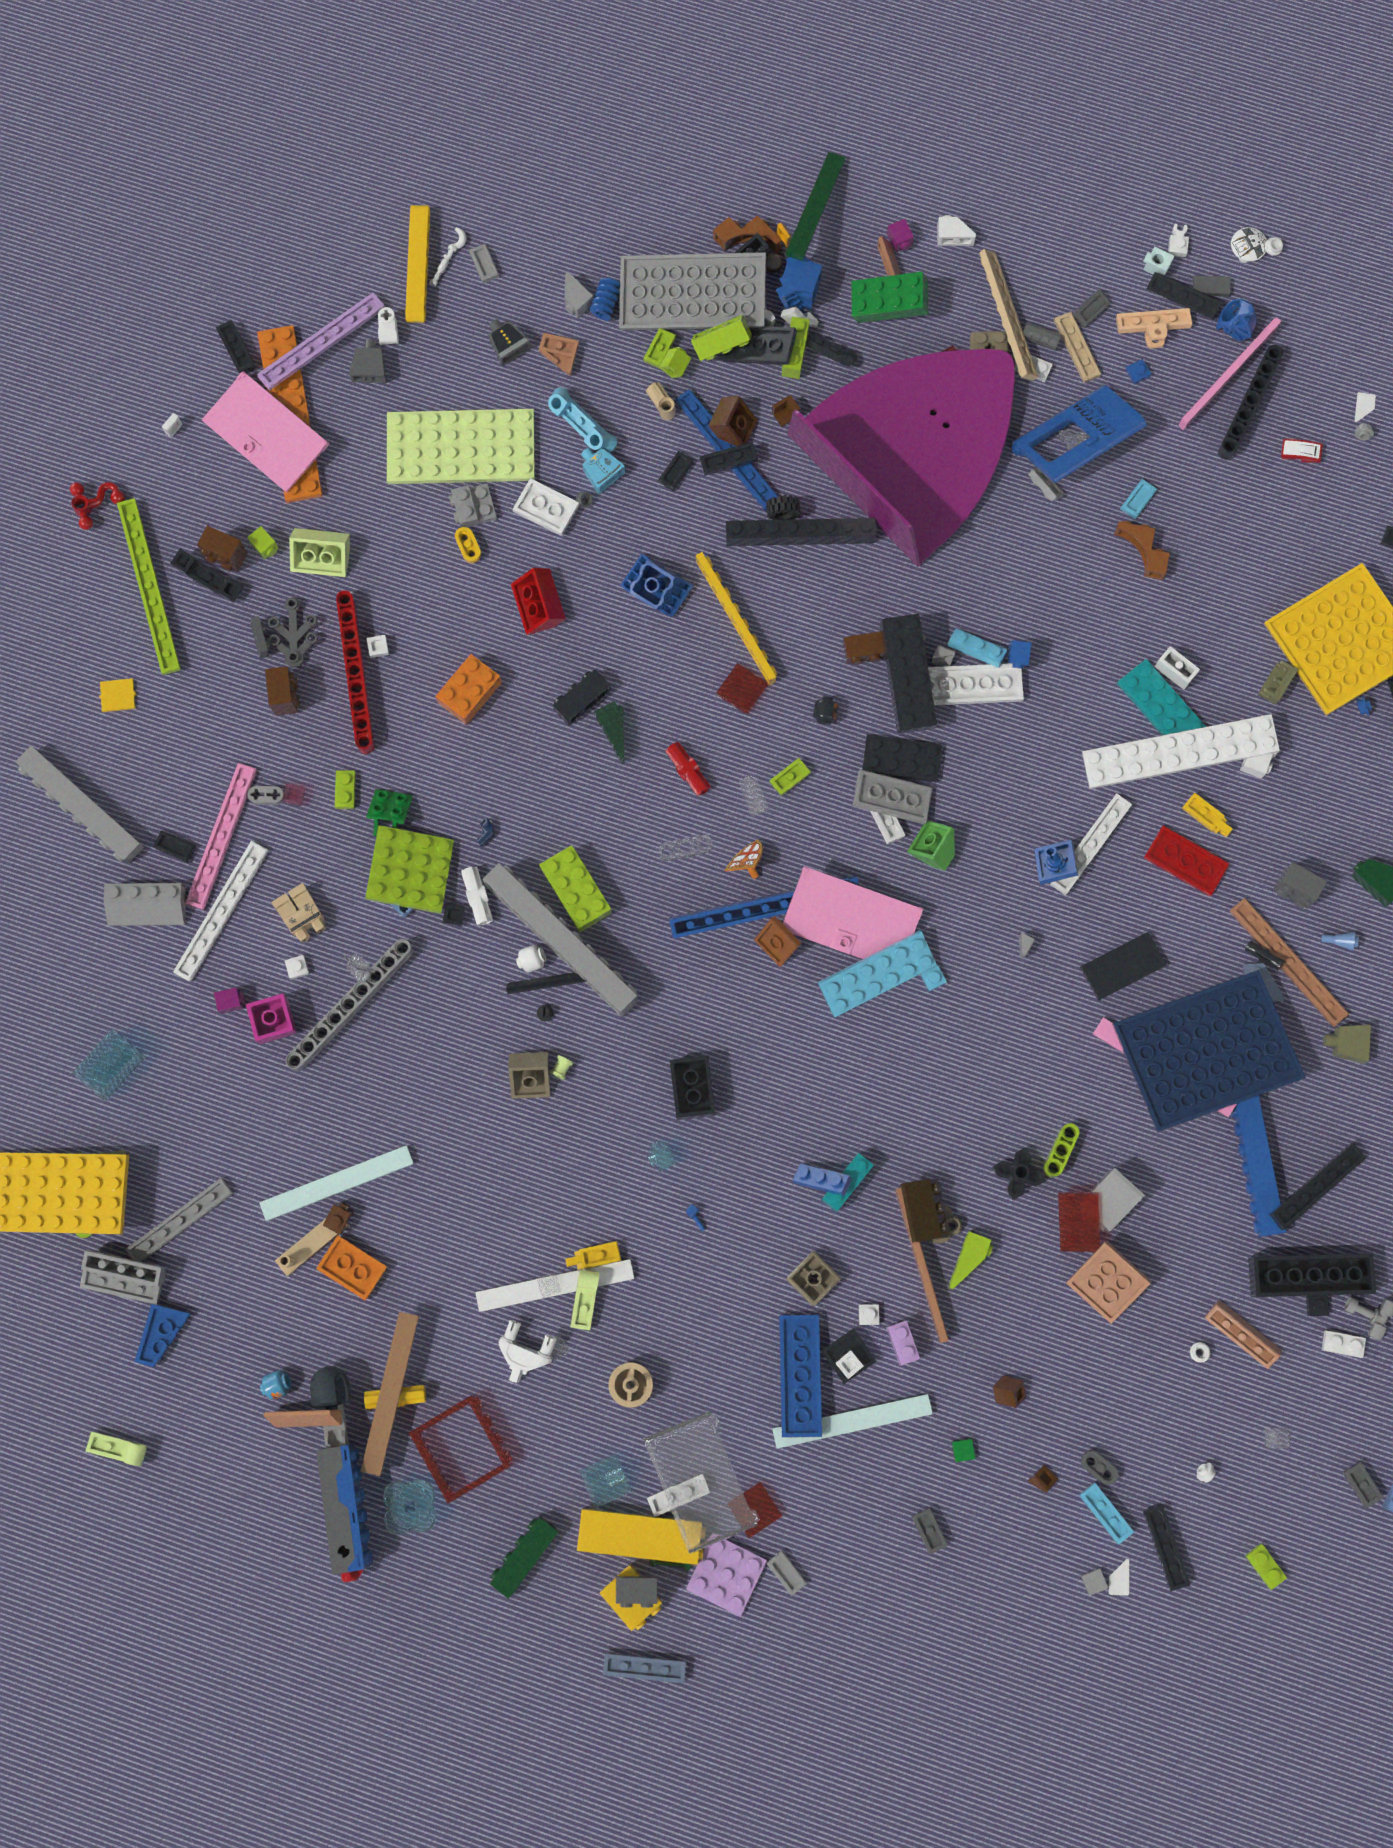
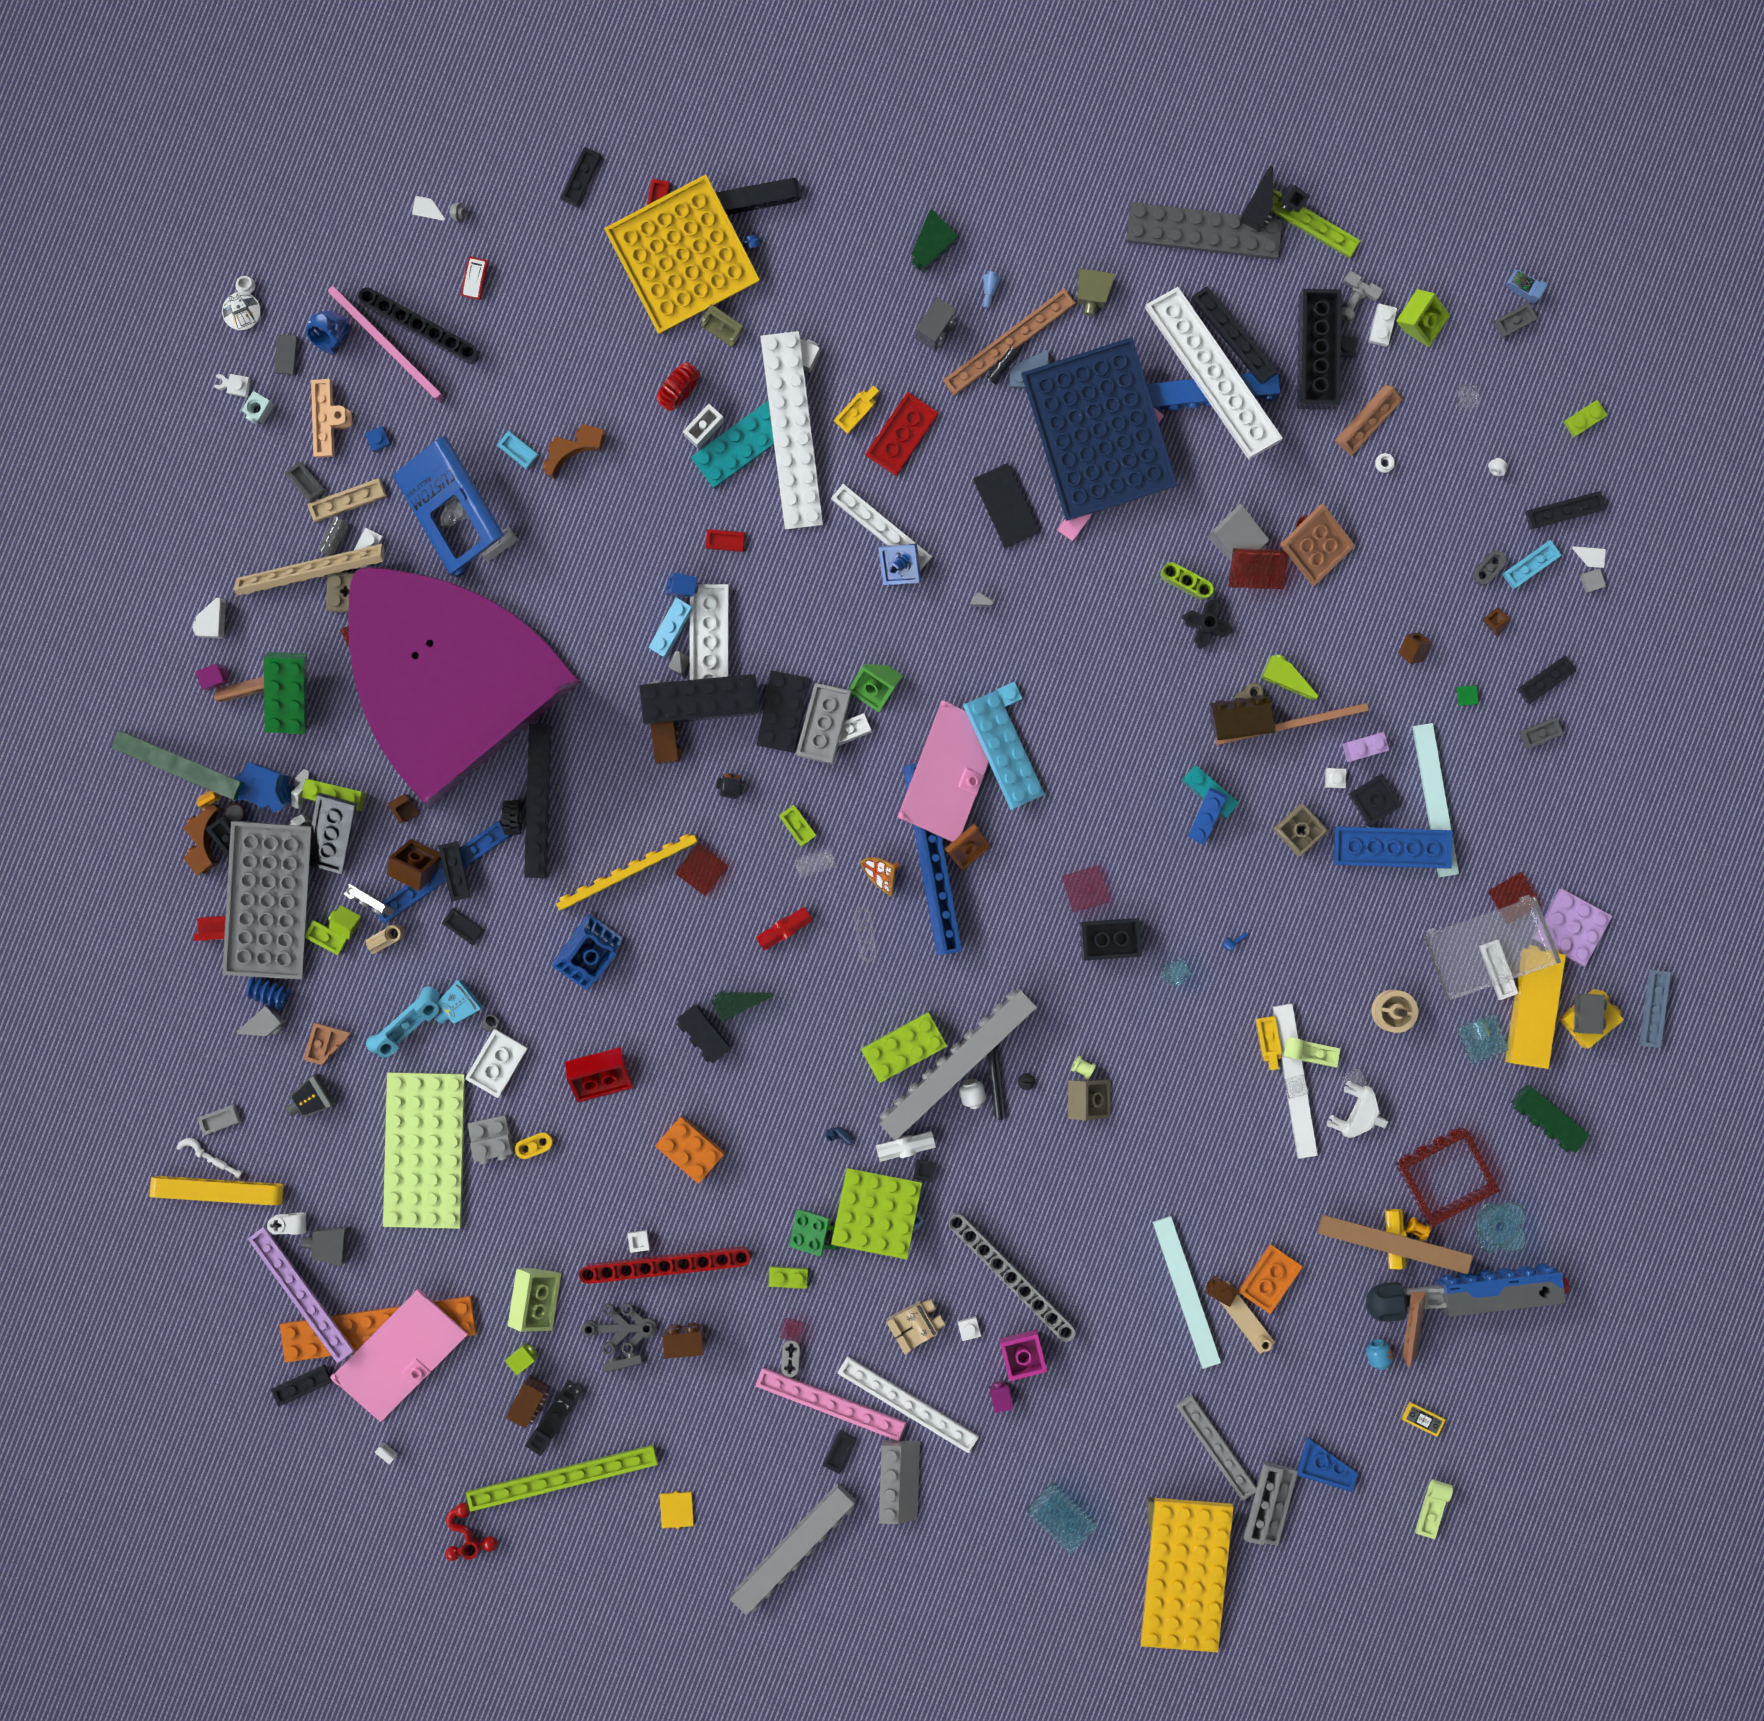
camera: 90 degrees left, 10 degrees up
(209, 1435) = (1423, 1419): none -> tile
(358, 967) = (975, 1266): clear hinge -> none
(405, 1420) = (1418, 1229): none -> light orange bush
(662, 244) = (210, 928): none -> red panel
(696, 383) = (367, 900): none -> hinge
(721, 338) = (321, 872): lime brick -> none
(741, 1063) = (1085, 888): none -> clear pink plate
(786, 1573) = (1573, 870): light grey tile -> none
(831, 350) = (338, 757): black hinge -> none
(849, 1364) = (1385, 800): white plate -> none
(985, 1535) = (1546, 679): none -> black tile
(1066, 696) = (725, 540): none -> red tile
(1183, 295) = (296, 384): black plate -> none
(1214, 641) = (678, 386): none -> red gear
(1276, 1165) = (1213, 373): none -> white plate
(1355, 1386) = (1423, 317): none -> lime slope

